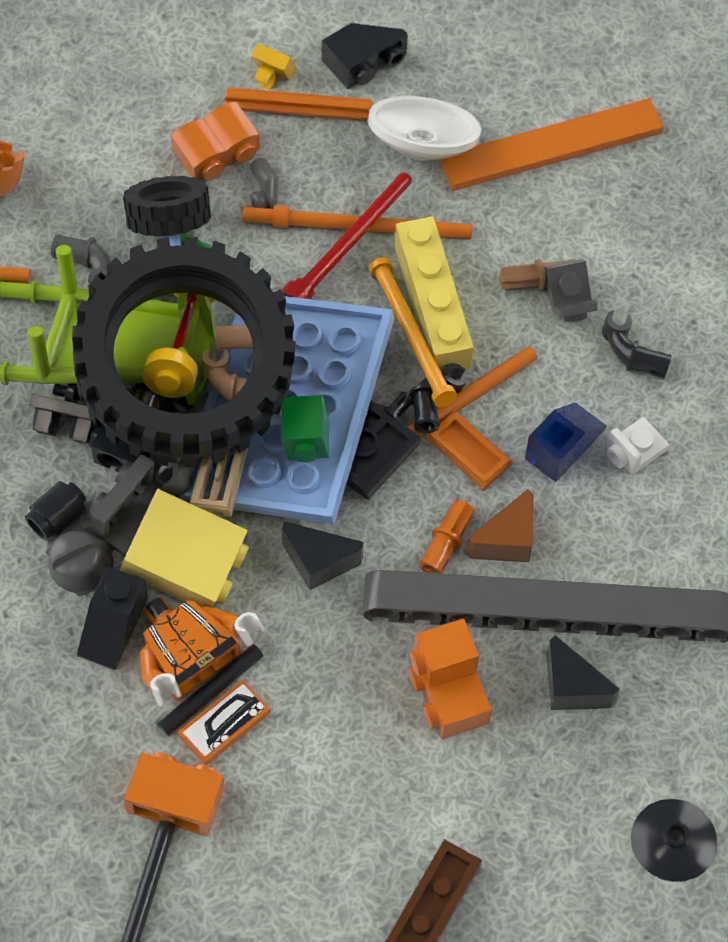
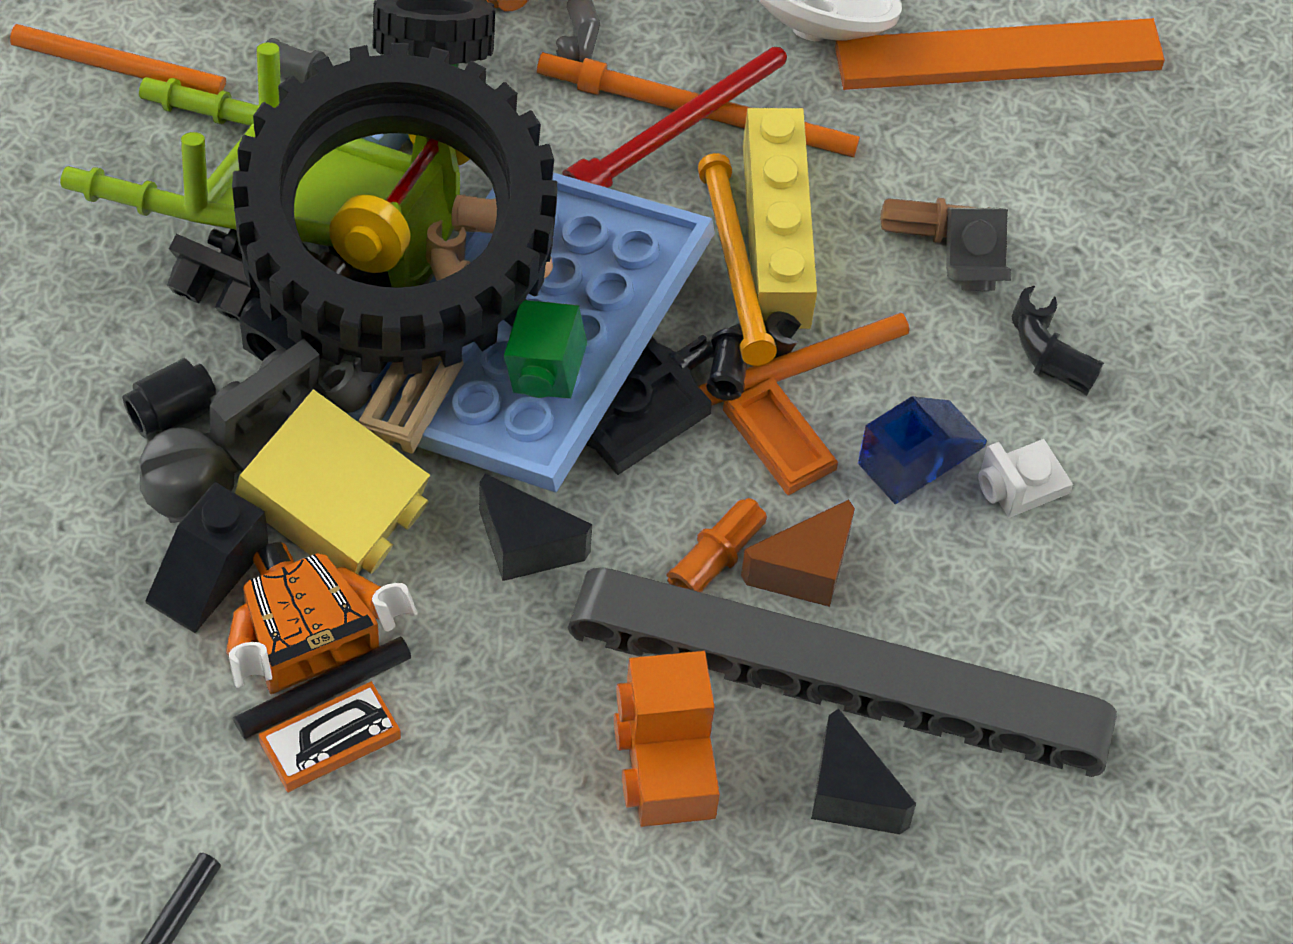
camera: 10 degrees right, 5 degrees down
(174, 792) = (230, 816): orange brick -> none

